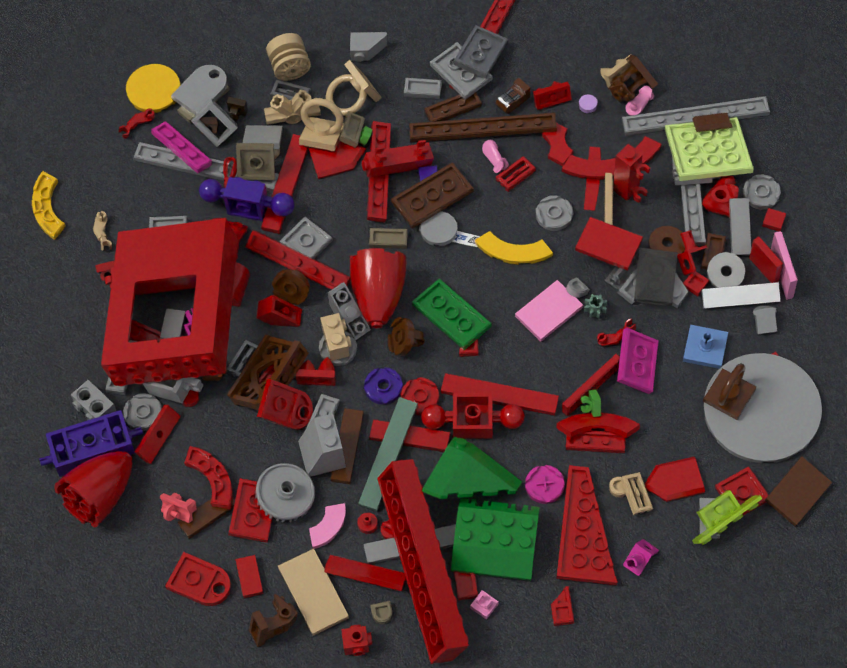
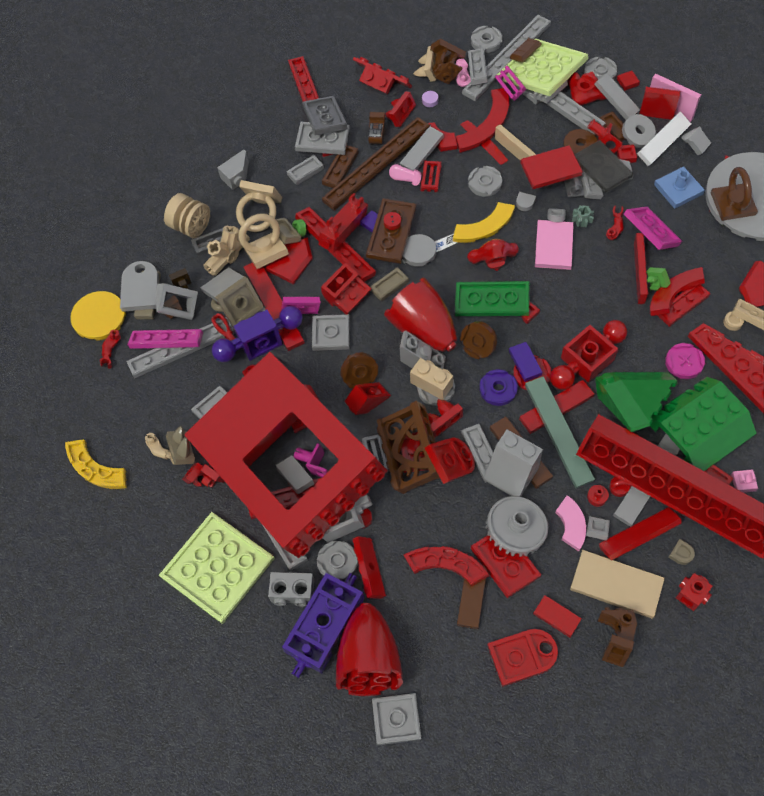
camera: 40 degrees left, 0 degrees up
(61, 347) = (217, 567): none -> yellowish green tile
(77, 547) = (396, 719): none -> light grey tile
(109, 243) = (180, 447): none -> dark tan tile
(174, 507) = (448, 613): coral hips -> none
(296, 260) = (339, 351): red tile -> none
(302, 201) = (306, 305): none -> dark pink tile
(341, 544) = (597, 528): none -> light grey tile
(347, 215) = (345, 289): none -> red brick
(420, 382) = (525, 361): none -> dark purple tile
(437, 187) = (392, 220): none -> red tile
(490, 279) = (494, 253): none -> red head
(502, 394) = (597, 319): red tile -> none
(530, 144) = (422, 149): none -> light grey tile
(564, 50) = (378, 78): none -> red bracket
(566, 257) = (525, 201): none -> light grey tile
(628, 173) = (516, 109): red brick -> none
(657, 105) = (477, 66): none -> light grey tile
(661, 143) = (503, 74): none -> dark pink tile
(693, 93) = (490, 45): none -> light grey tile

